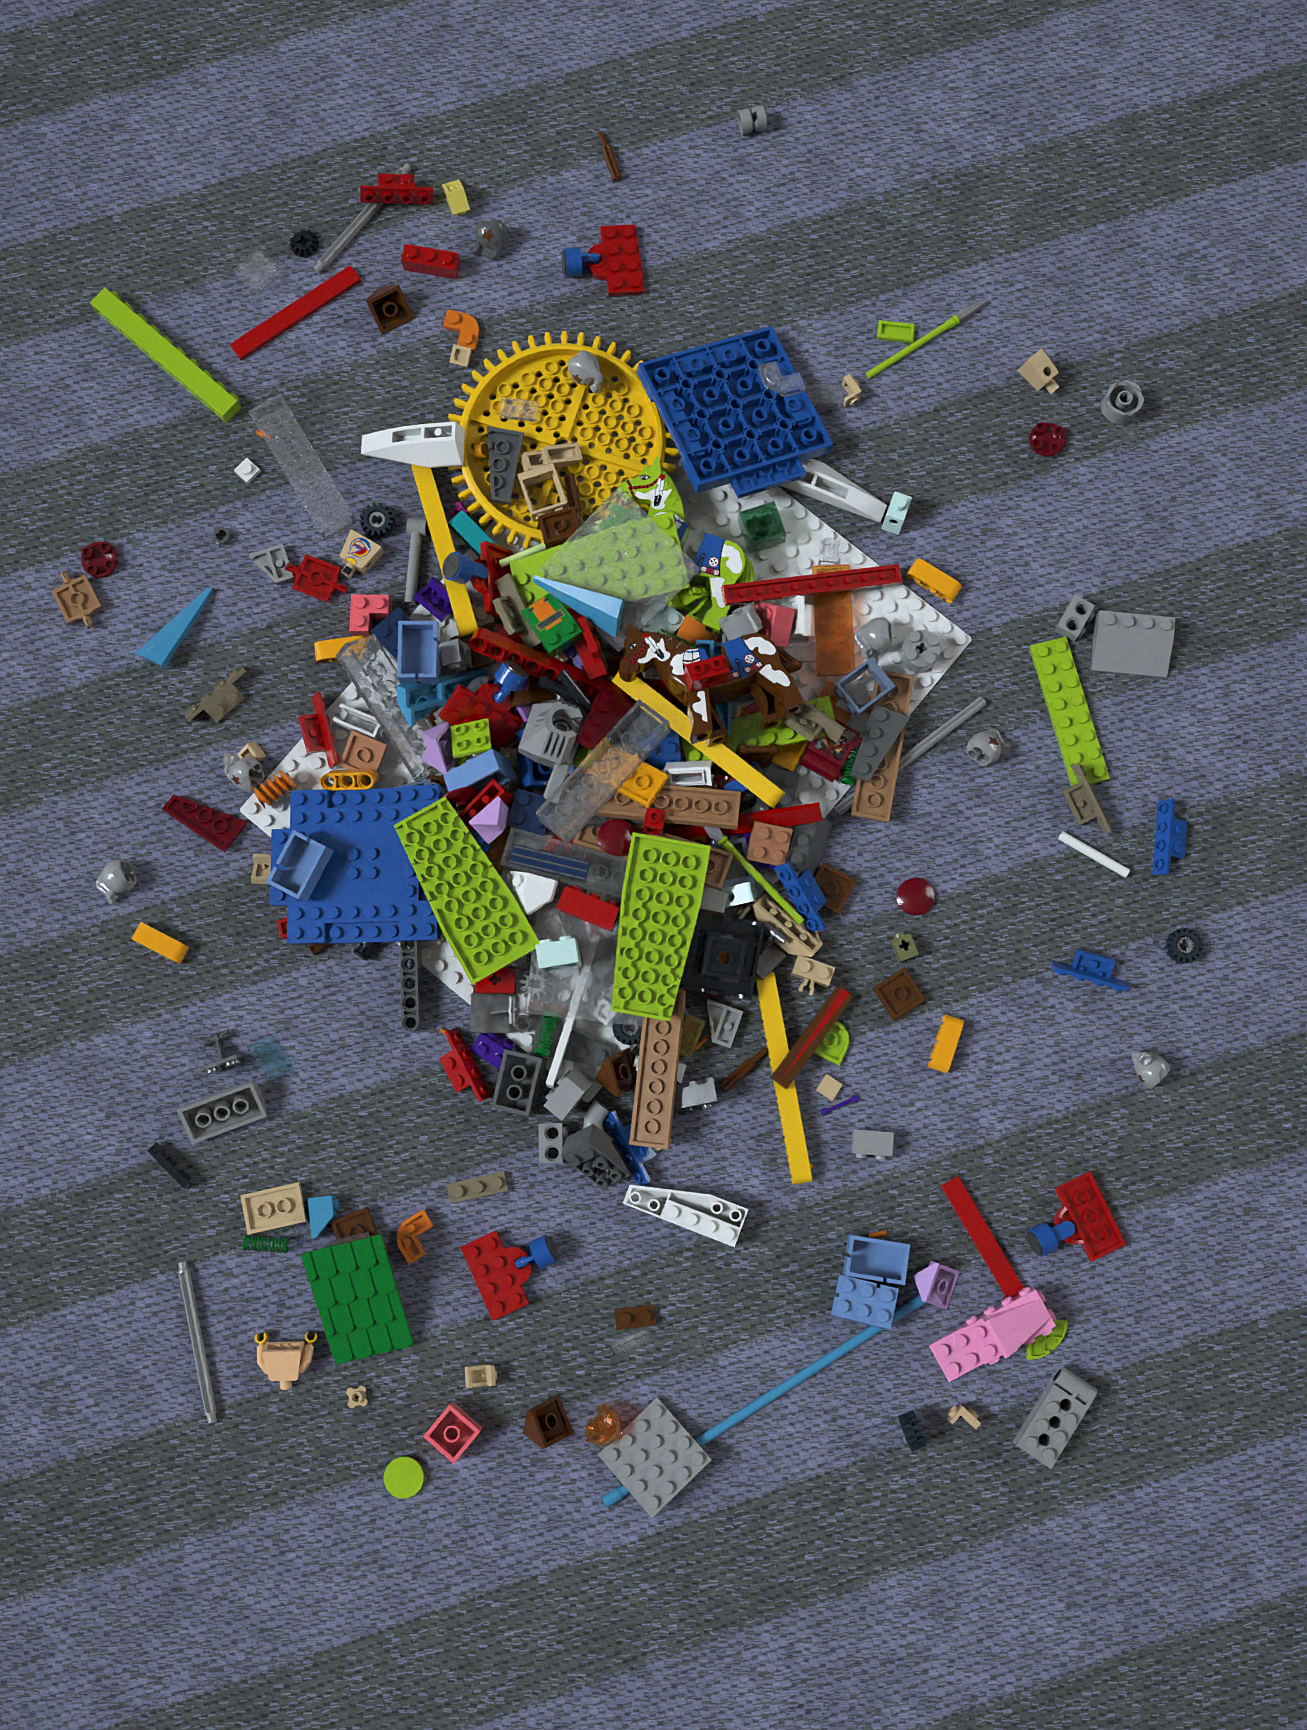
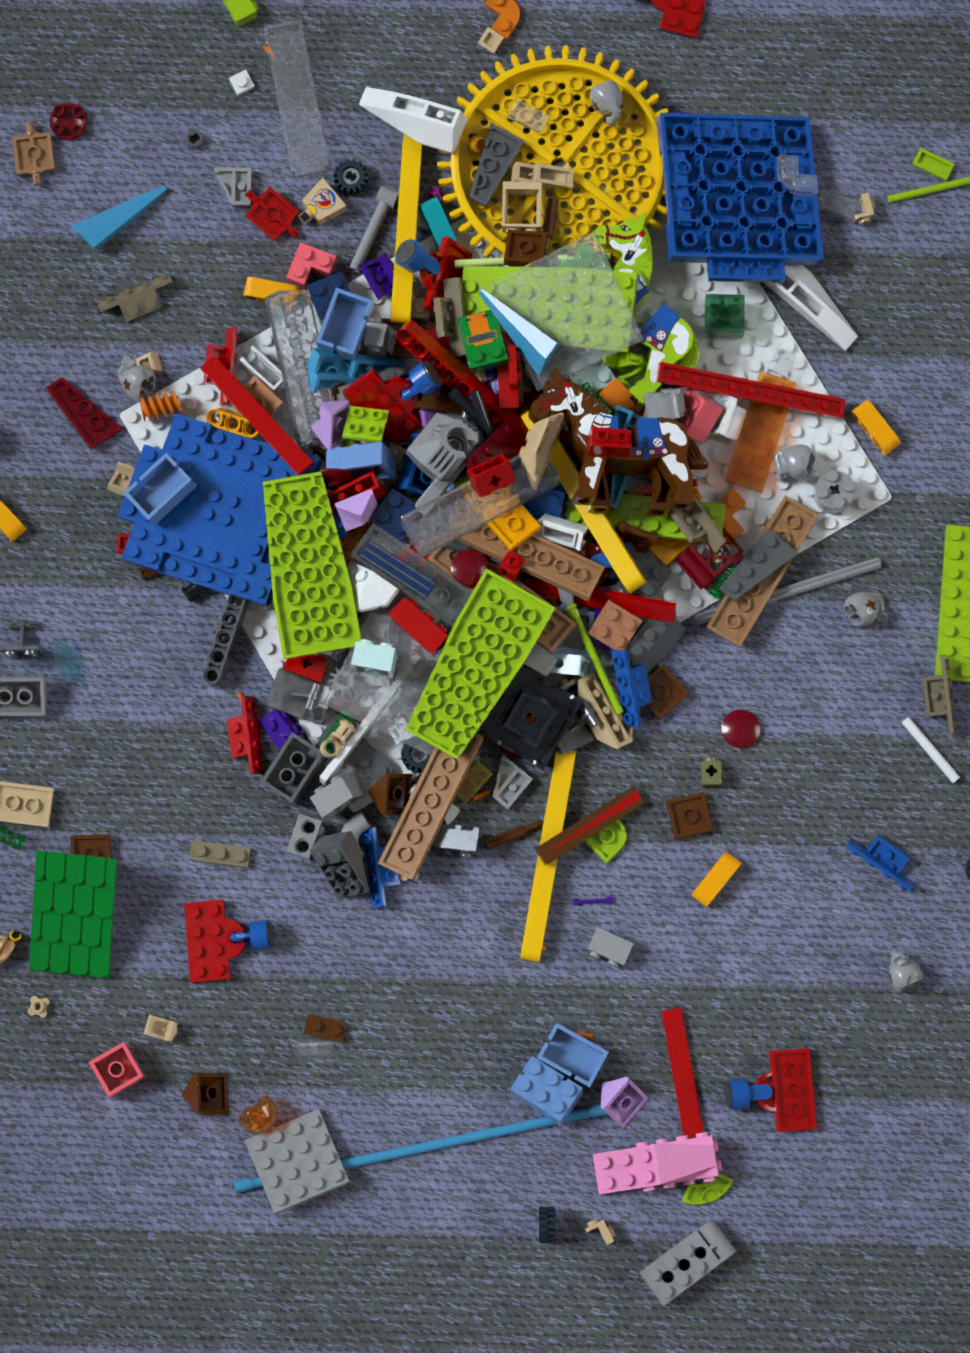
camera: 20 degrees right, 0 degrees up
(321, 1213) = (65, 824): dark azure slope -> none
(367, 766) = (256, 415): none -> red tile
(403, 1477) = (56, 1096): lime tile -> none
(407, 1236) = (138, 875): orange plate -> none
(550, 1041) = (338, 738): none -> tan connector
(606, 743) = (491, 475): none -> red brick
(641, 702) = (539, 447): none -> tan wedge
(690, 1210) = (415, 947): white wedge -> none
(812, 971) = (613, 764): tan brick -> none
(829, 1087) = (588, 880): tan tile -> none
(877, 674) = (783, 502): sand blue window -> none
(897, 511) = (864, 347): light aqua torso -> none

